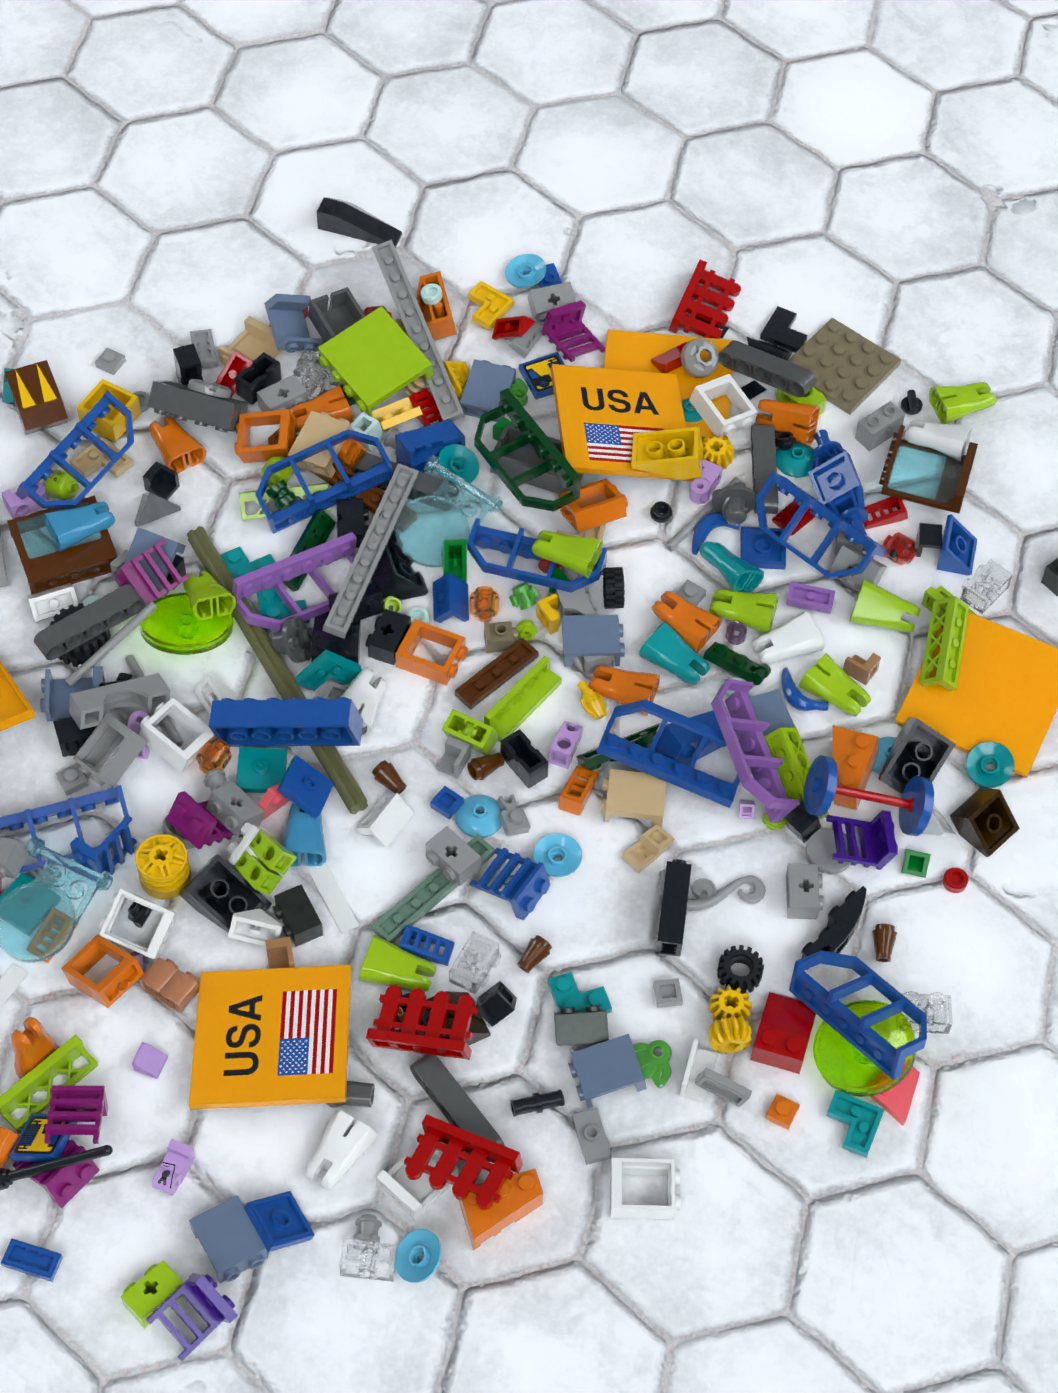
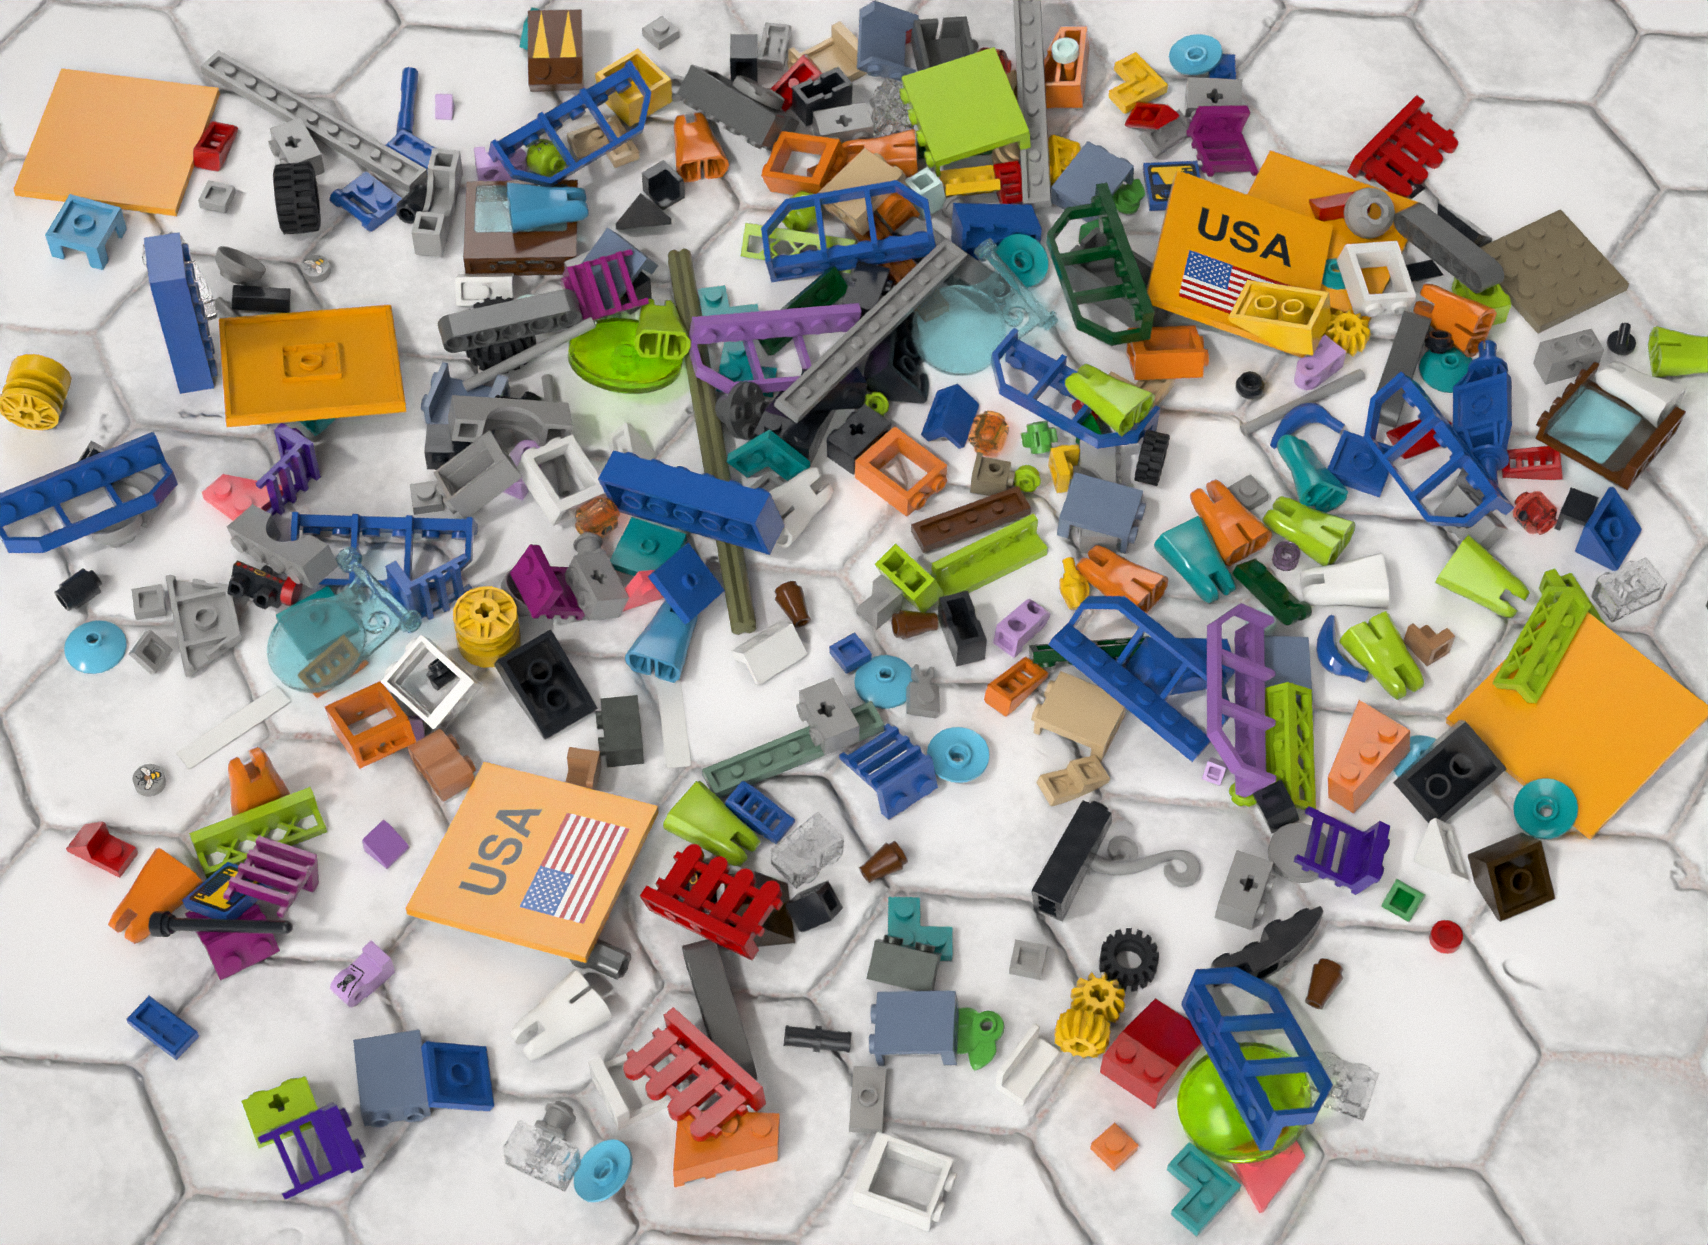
camera: 20 degrees right, 0 degrees up
(254, 927) = (564, 727): white slope -> none
(260, 858) = (601, 651): lime hips -> none
(280, 494) = (792, 237): dark green wheel -> none
(419, 614) = (905, 423): light aqua tile -> none
(455, 558) = (972, 369): green slope -> none
(723, 1087) = (1049, 1092): light grey tile -> none
(734, 502) = (1342, 397): dark grey plate -> none
(779, 331) = (1487, 210): black tile -> none
(810, 597) = (1396, 540): medium lavender plate -> none
(914, 805) = (1423, 829): blue piece -> none

